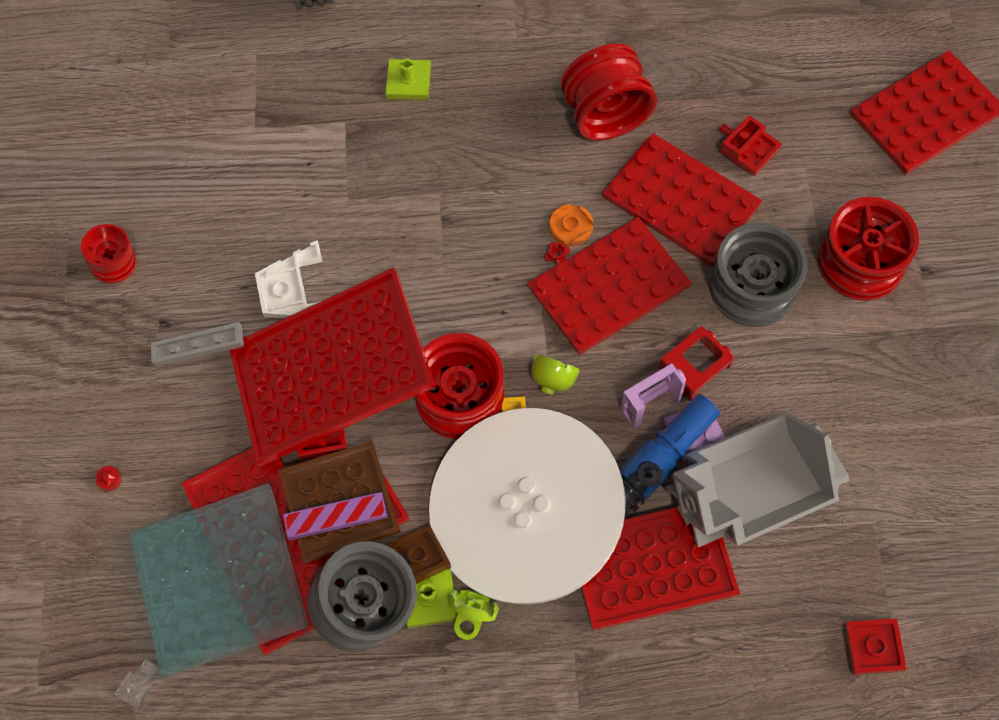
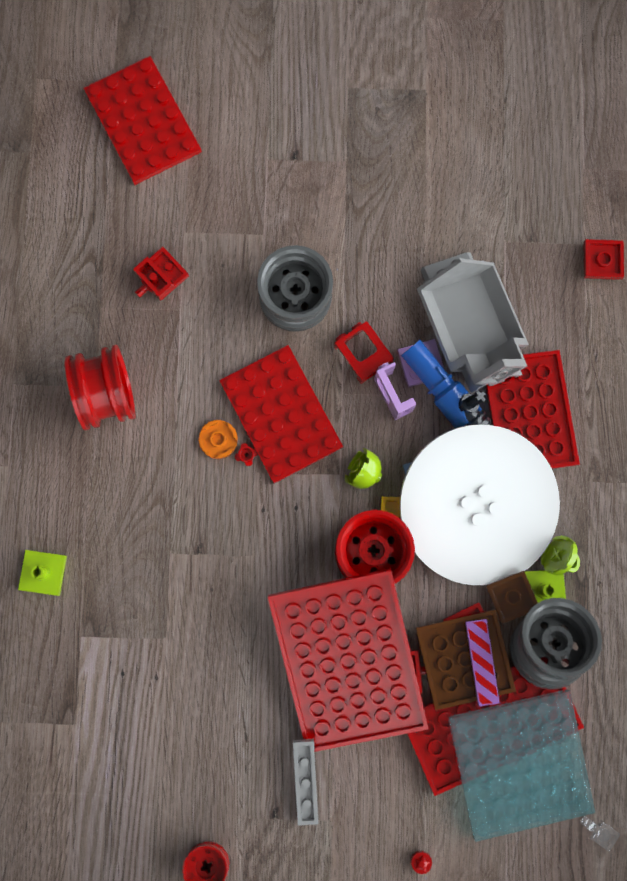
camera: 90 degrees left, 15 degrees up
(282, 286) = (257, 701): white wing -> none
(681, 198) = (203, 341): red plate -> none
(874, 234) = (267, 170): red wheel -> none

